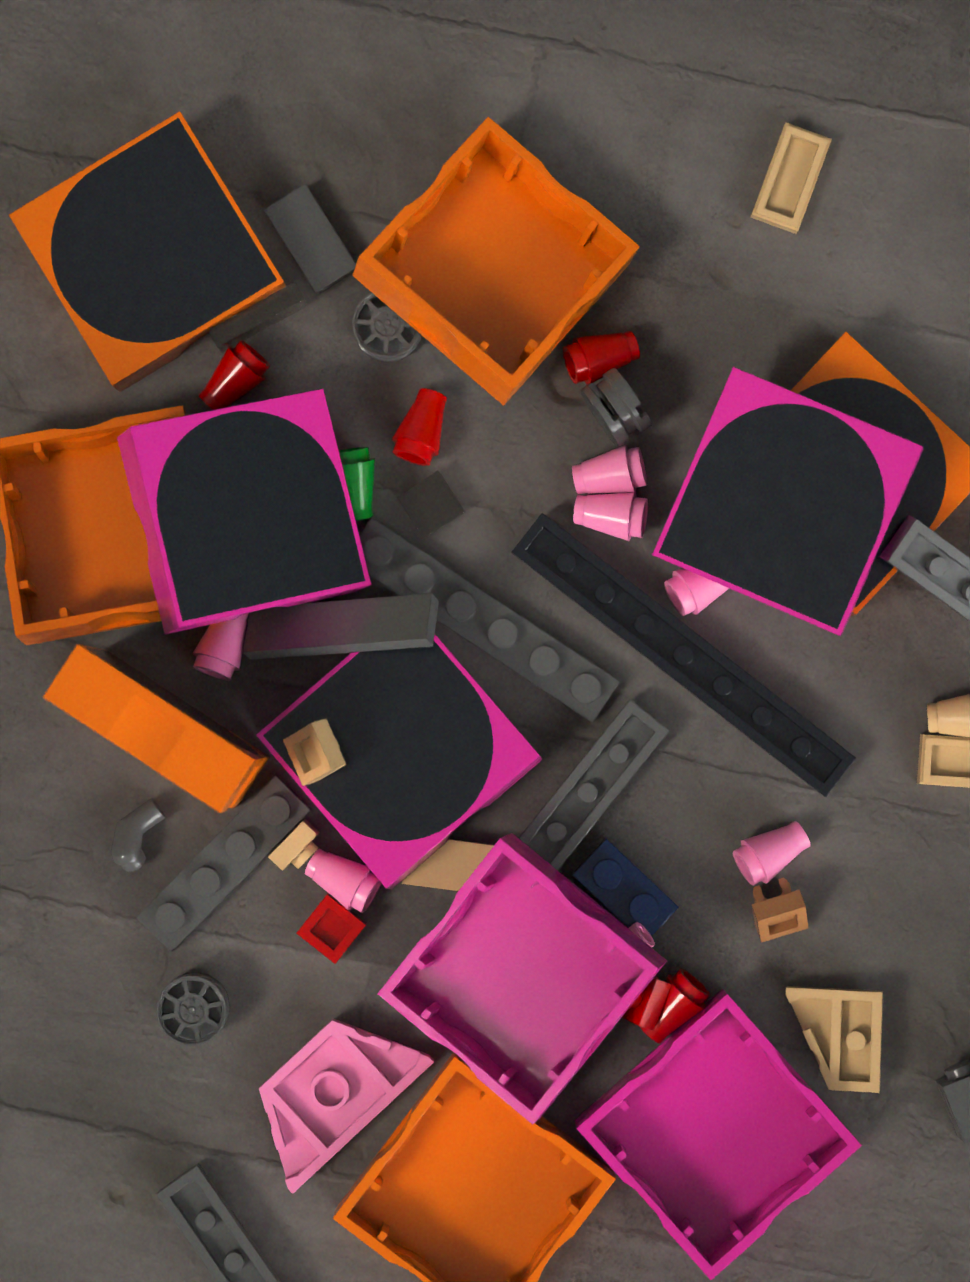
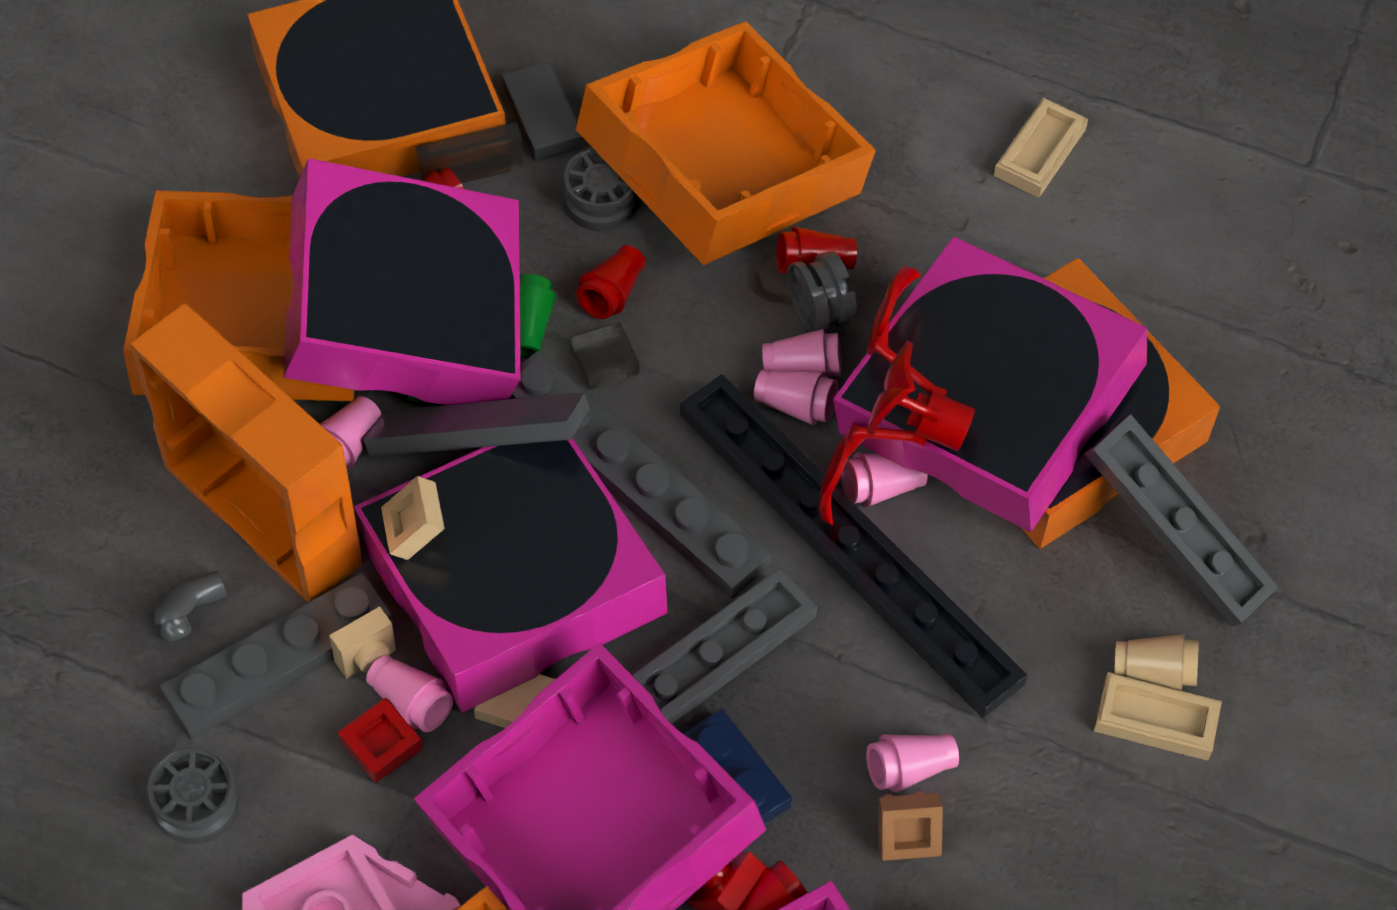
camera: 10 degrees right, 30 degrees down
(742, 579) = (932, 414): none -> red plant

